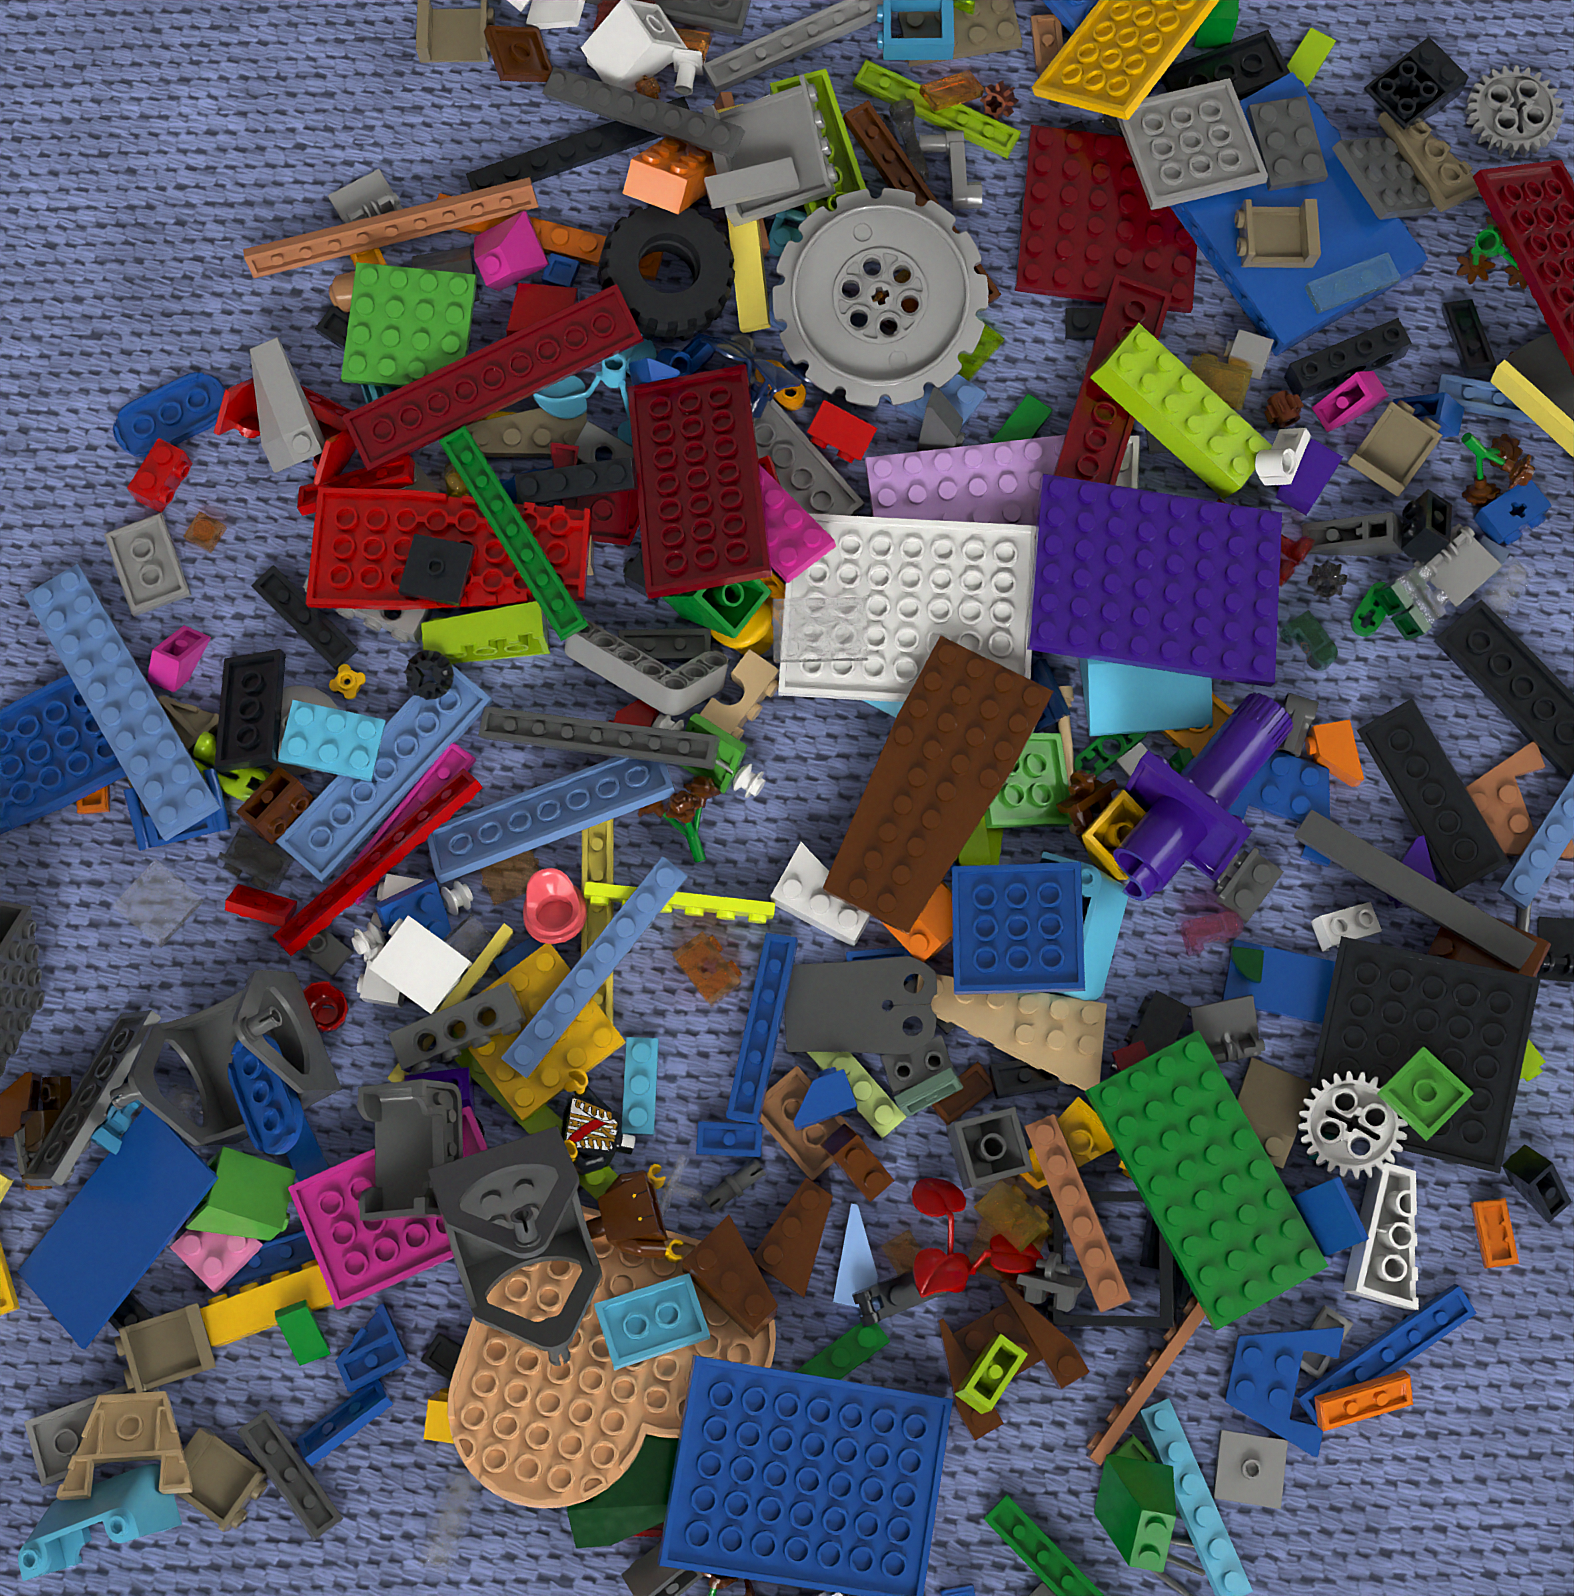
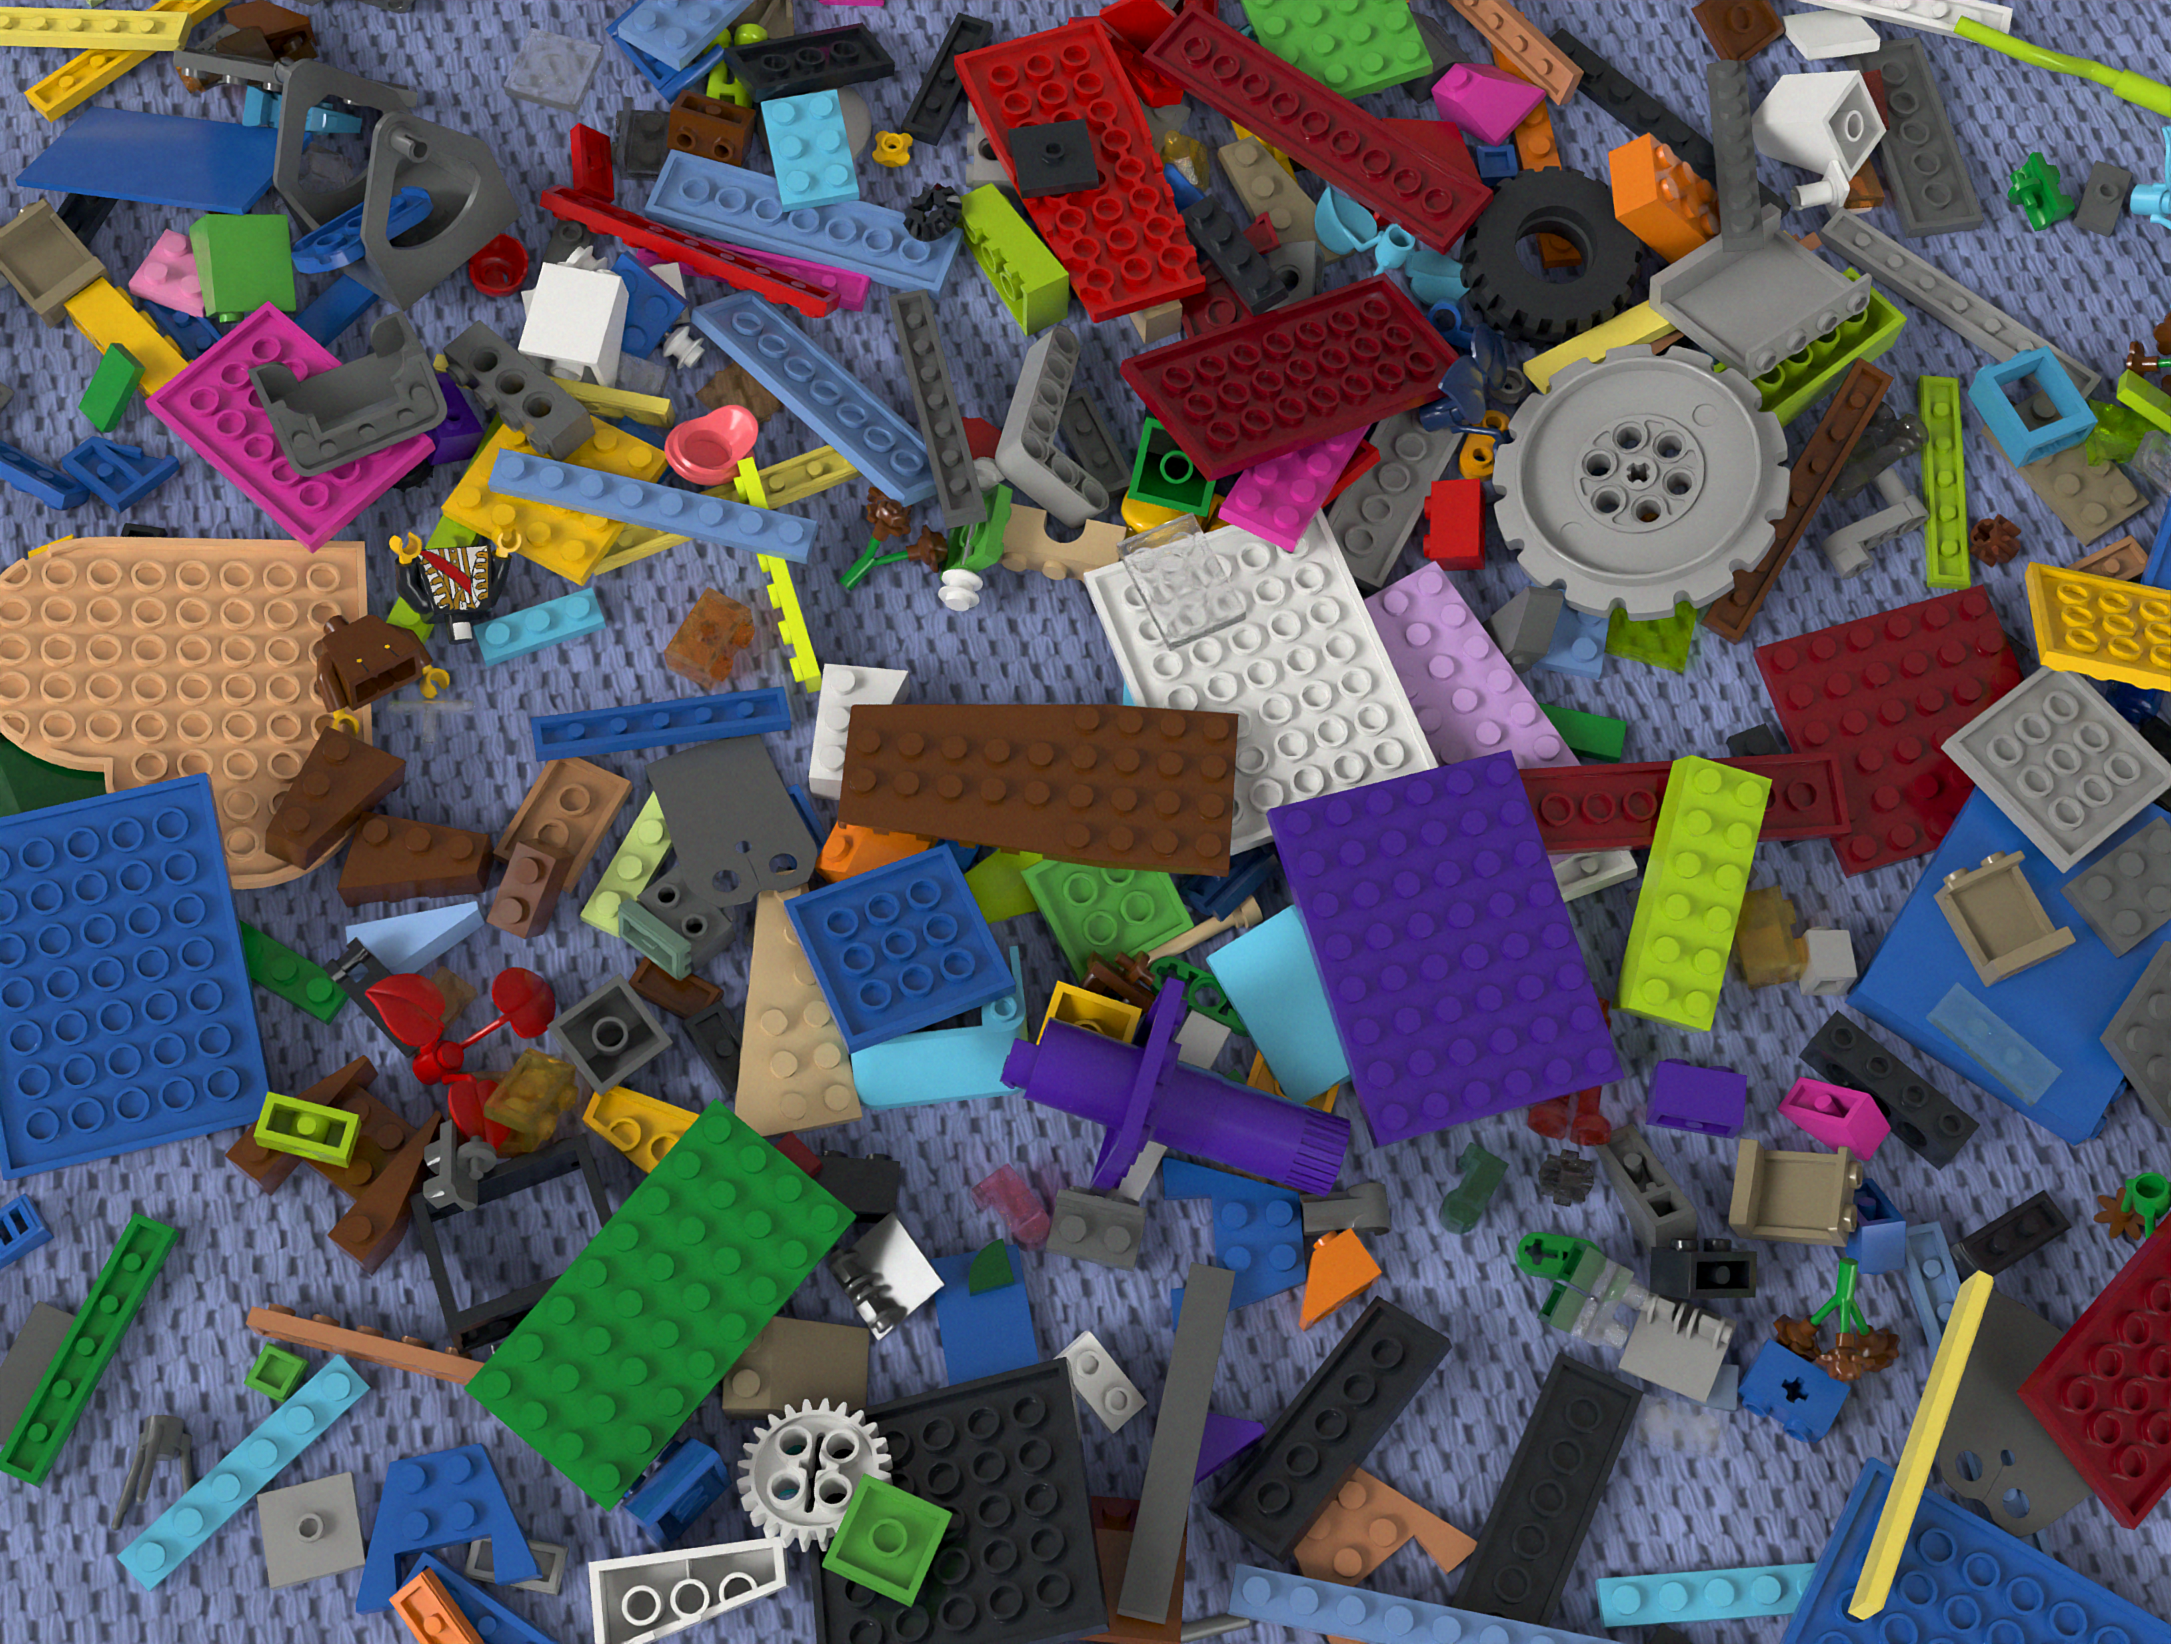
camera: 60 degrees right, 10 degrees down
(513, 533) = (1134, 216): green tile -> none
(516, 1211) = (297, 501): dark grey piece -> none
(648, 87) = (1777, 166): clear orange plate -> none
(650, 370) = (1415, 289): blue slope -> none
(651, 1321) = (242, 725): medium azure plate -> none
(729, 1139) = (510, 744): blue plate -> none
(734, 1185) = (456, 772): dark grey pin -> none
(751, 183) = (1704, 284): light grey tile -> none
(825, 1099) = (595, 820): blue slope -> none
(951, 90) = (1974, 482): clear orange tile -> none
(1078, 1213) = (560, 1168): nougat plate -> none
(1137, 1509) = (200, 1392): green slope -> none
(1282, 460) = (1698, 1047): white plate -> none
(1283, 409) = (1774, 1035): copper gear -> none

